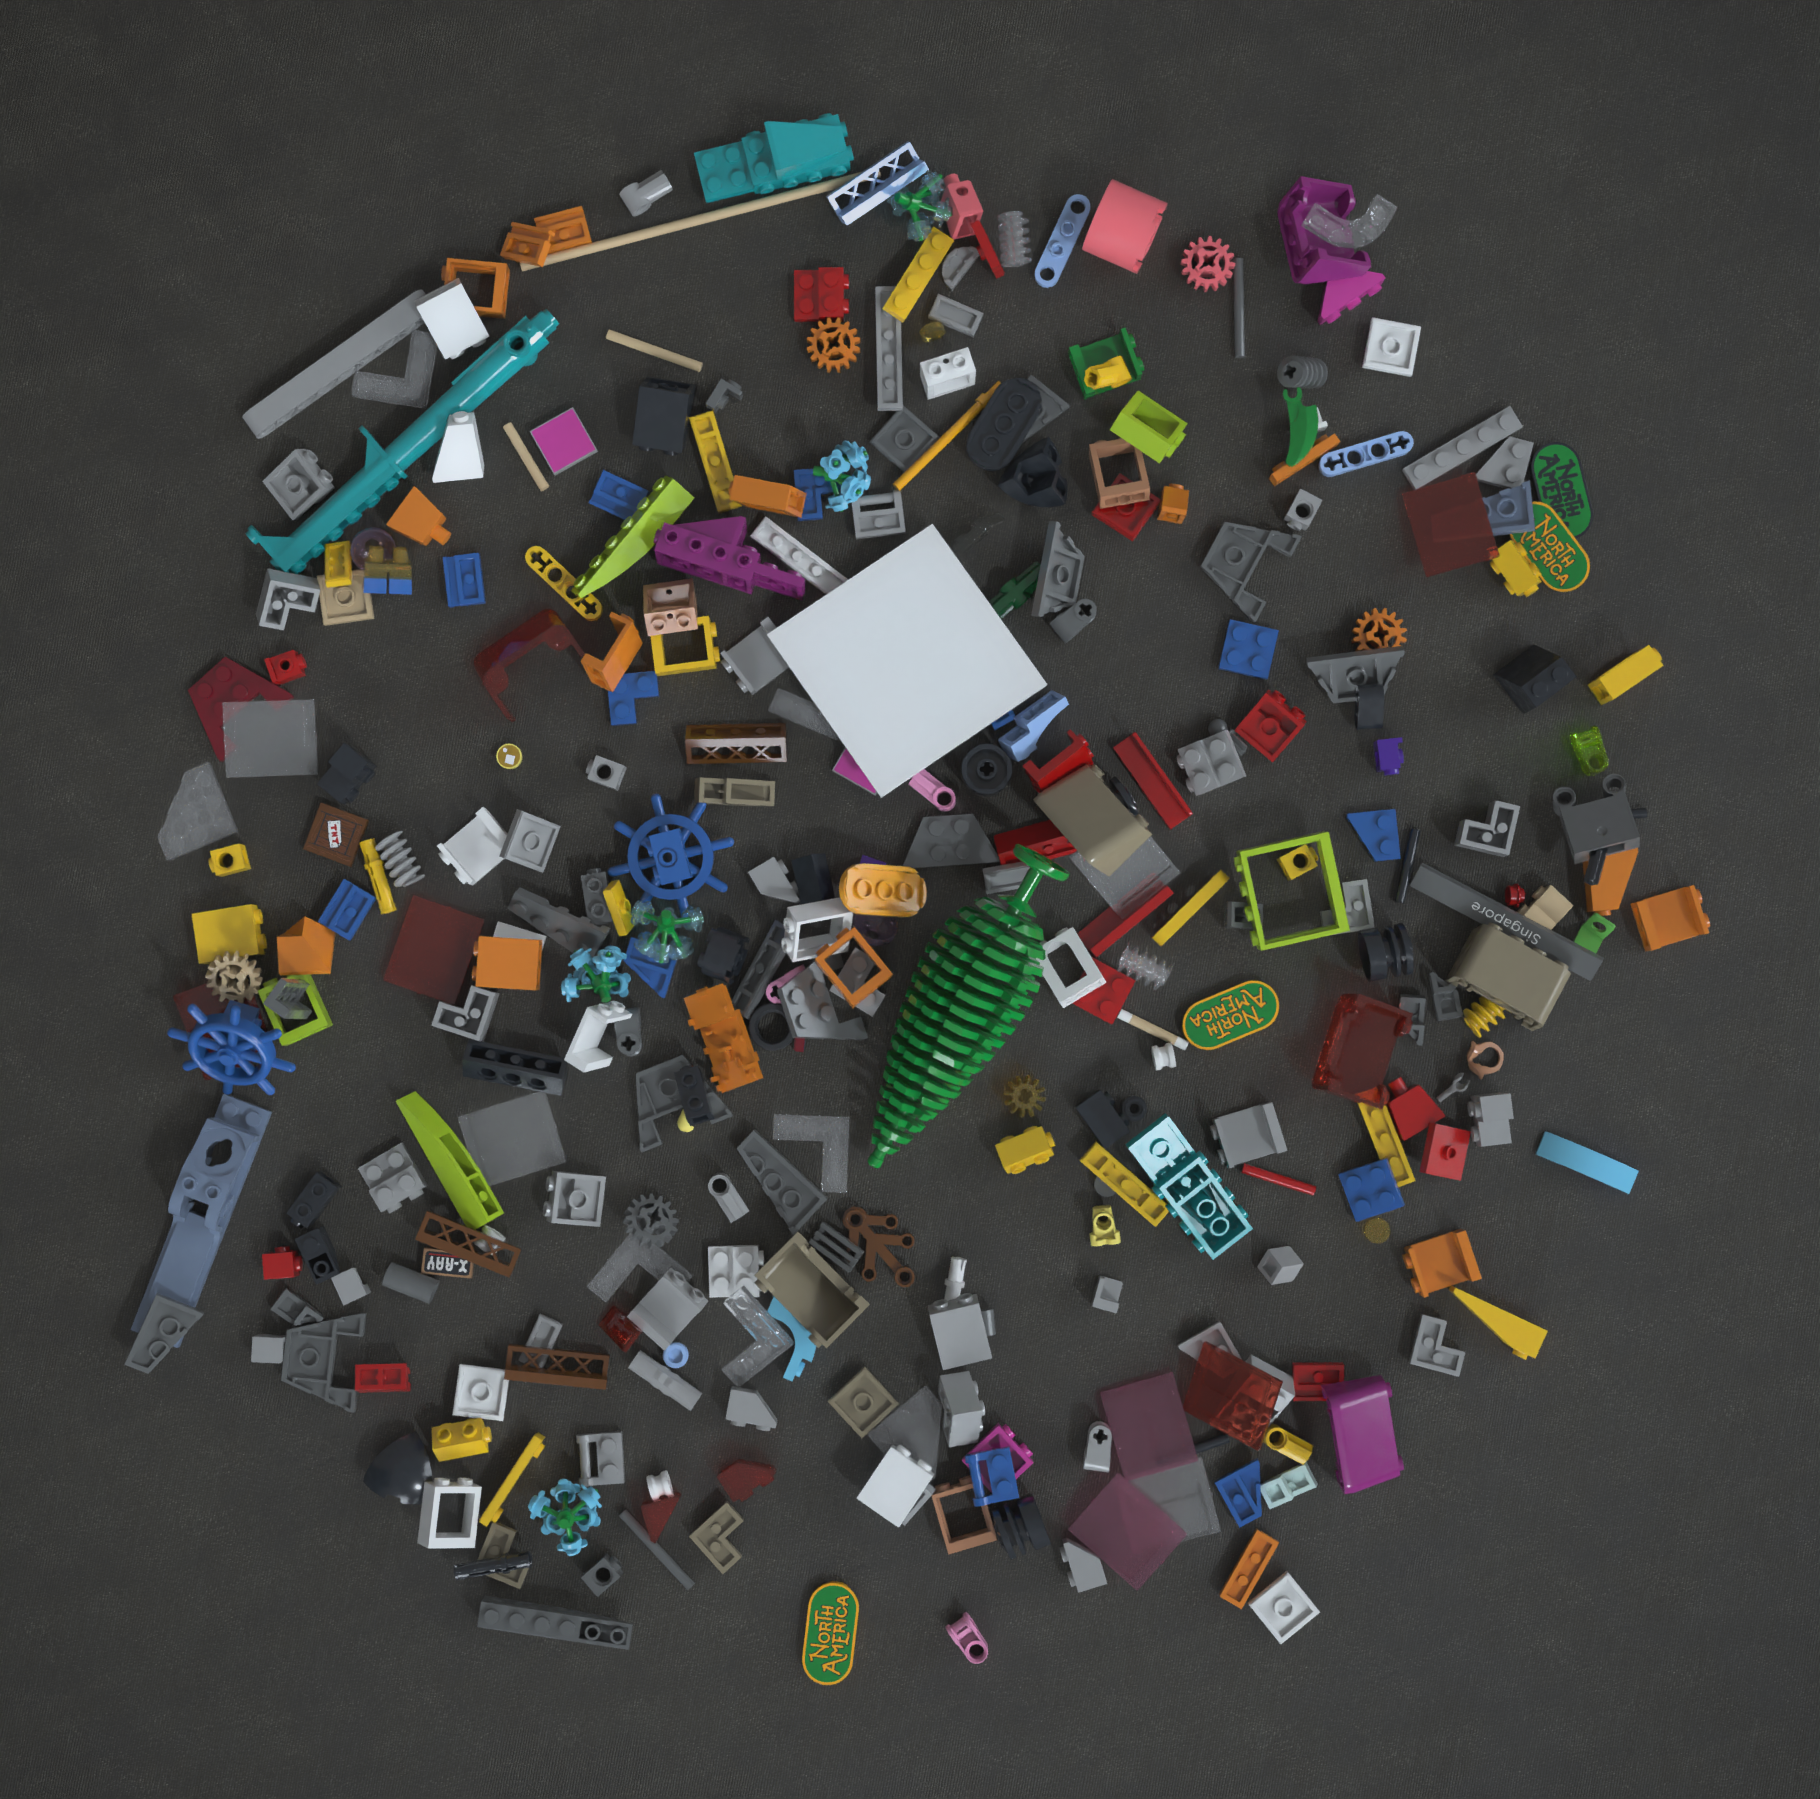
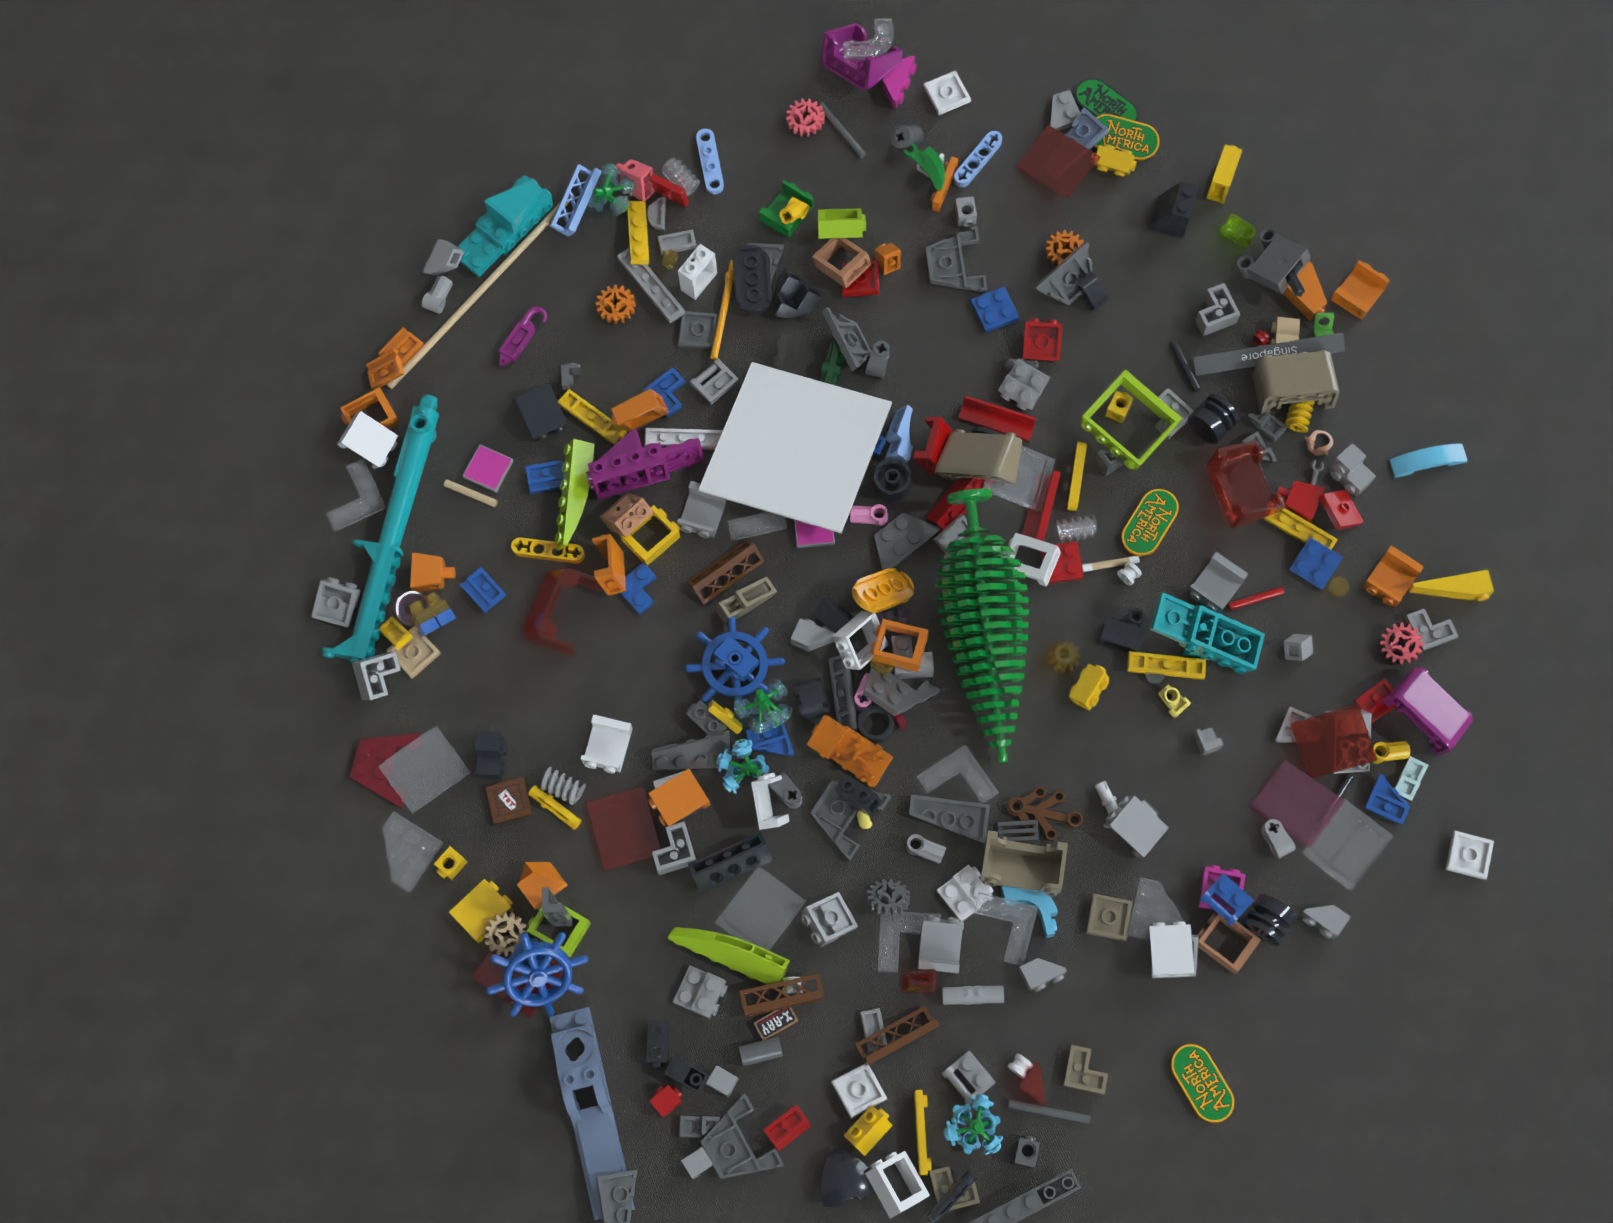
camera: 35 degrees left, 15 degrees down
(295, 670) = (404, 725): red brick -> none
(335, 367) = (312, 518): light grey beam -> none
(347, 909) = (549, 841): blue plate -> none
(460, 450) = (426, 512): white slope -> none
(509, 756) = (587, 676): tile -> none
(529, 841) = (638, 715): light grey tile -> none
(615, 778) = (660, 635): light grey brick -> none
(654, 350) = (507, 380): tan bar -> none
(676, 1355) = (967, 975): light blue tile -> none
(681, 153) = (443, 258): none -> light grey slope
(702, 308) = (520, 337): none -> magenta plate
(744, 1476) = (1070, 1019): clear red slope -> none
(818, 975) = (882, 668): none -> clear yellow tile
(820, 294) = (586, 282): red plate -> none
(839, 462) = (669, 362): medium azure plant -> none
(961, 1408) = (1175, 872): light grey brick -> none
(967, 1637) = (1291, 1018): bright pink piece -> none
(1124, 226) = (742, 124): coral brick -> none
(1127, 1531) = (1337, 876): clear pink piece -> none
(1248, 1568) = (1428, 846): orange plate -> none
(1378, 833) = (1153, 359): blue wing -> none
(1388, 755) = (1124, 311): dark purple brick -> none
(1388, 1352) = (1410, 640): none -> coral gear
(1462, 448) = (1031, 120): light grey plate -> none

